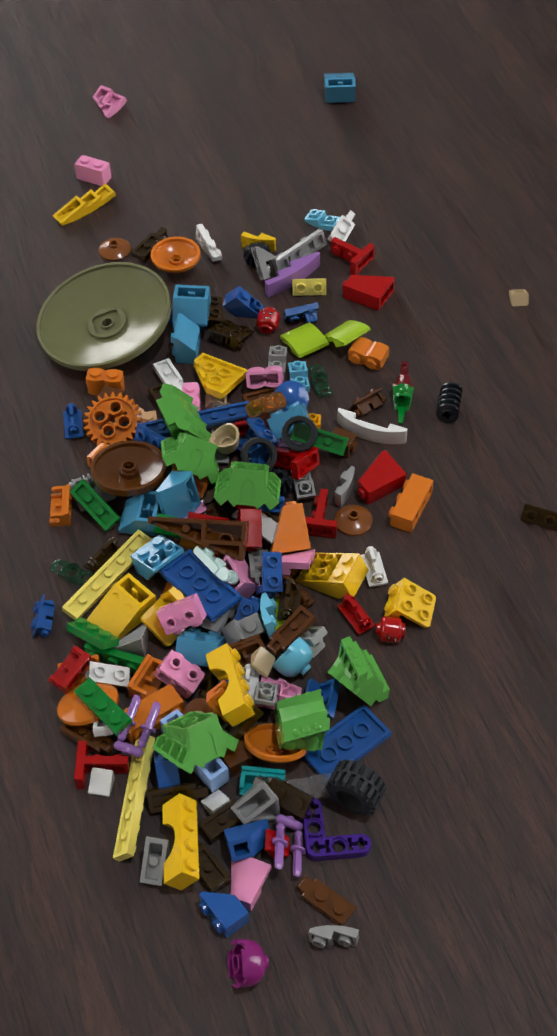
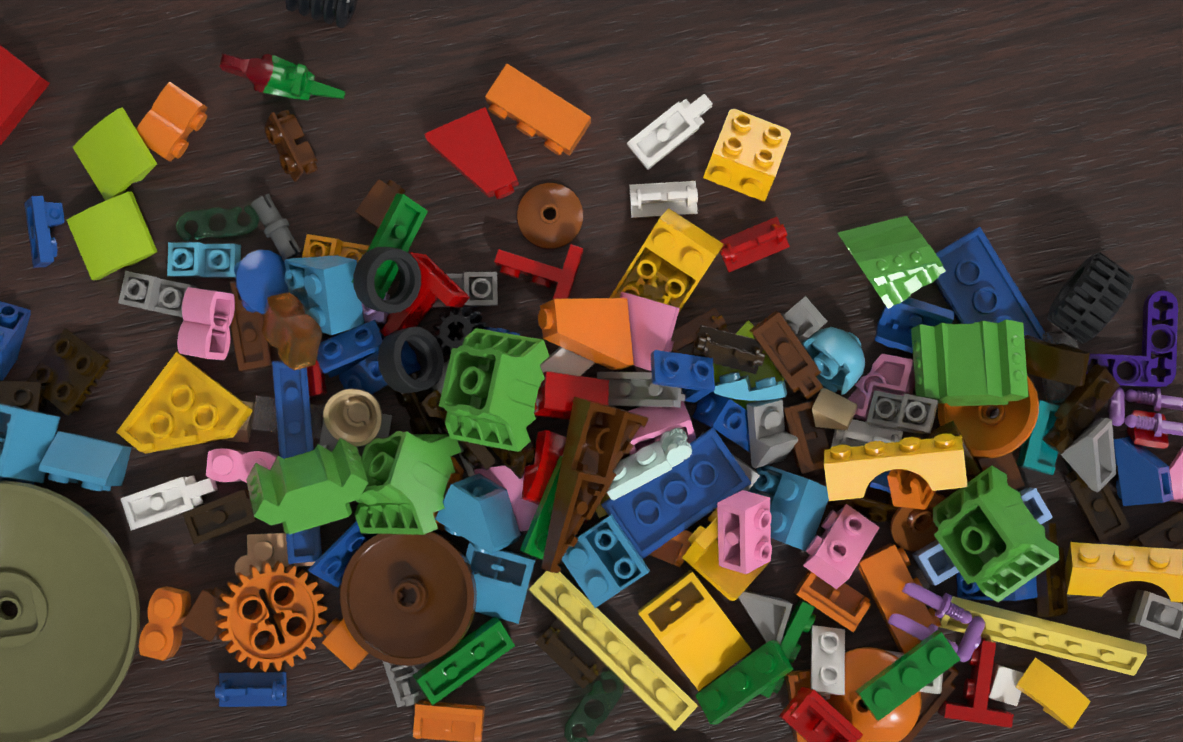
camera: 80 degrees left, 35 degrees up
(97, 807) = (1053, 693): none -> yellow slope
(215, 801) = (1066, 511): white slope -> none
(268, 320) = (51, 297): red head -> none
(311, 772) = (1056, 361): none -> dark brown slope
(322, 401) = (276, 227): none -> dark grey pin
(346, 486) = (476, 212): light grey slope -> none
(370, 432) = (333, 186): white slope -> none
(390, 629) = (793, 193): red head -> none
(415, 566) = (669, 131): none -> white hinge

